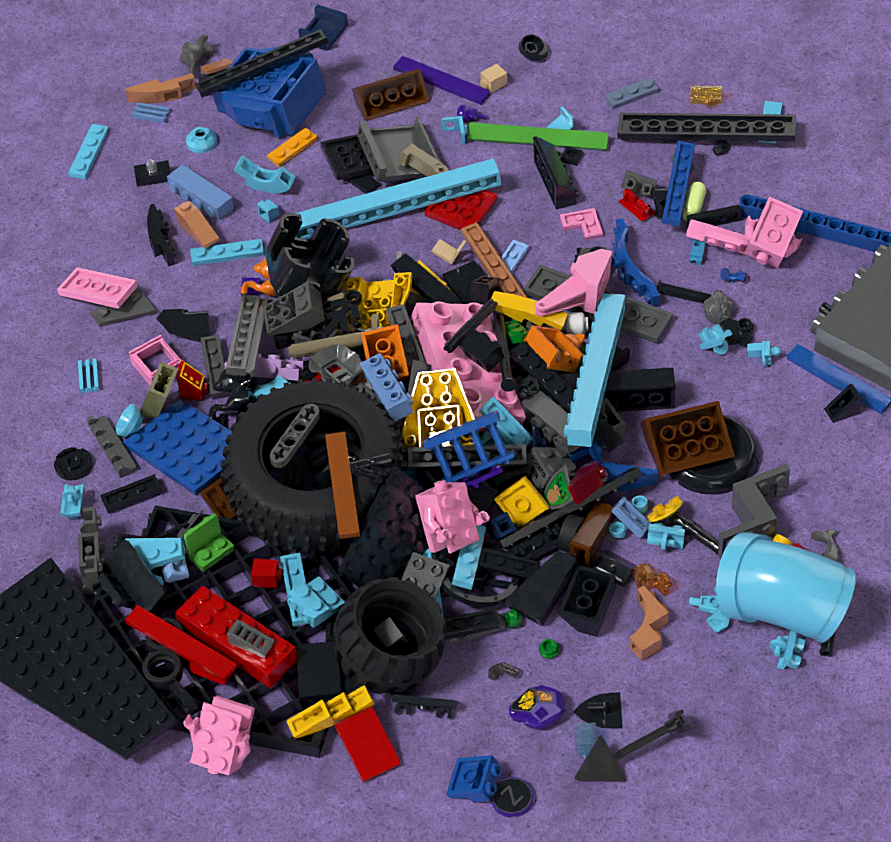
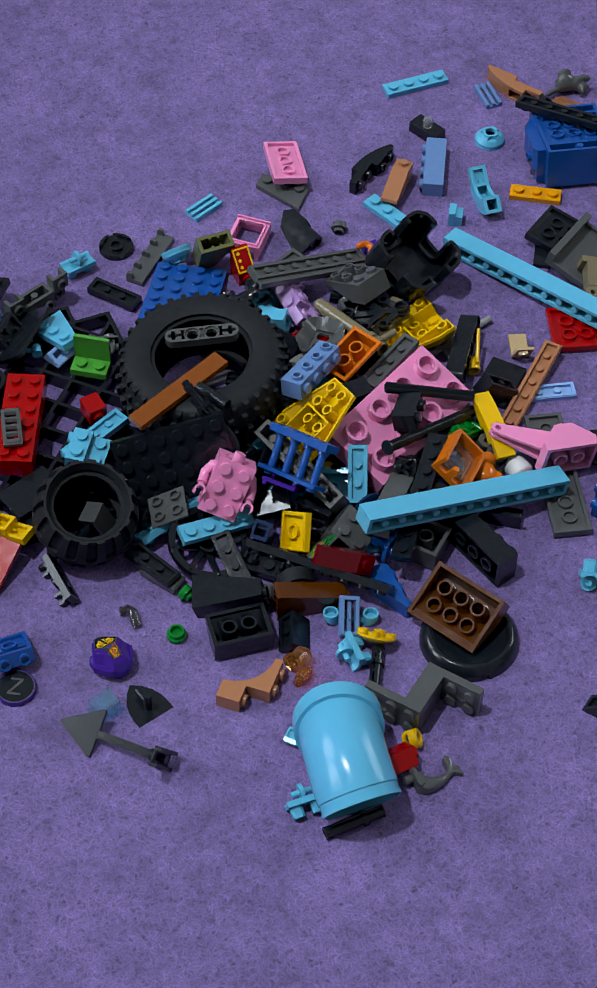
camera: 50 degrees right, 0 degrees up
(205, 294) = (339, 227): none -> dark grey plate

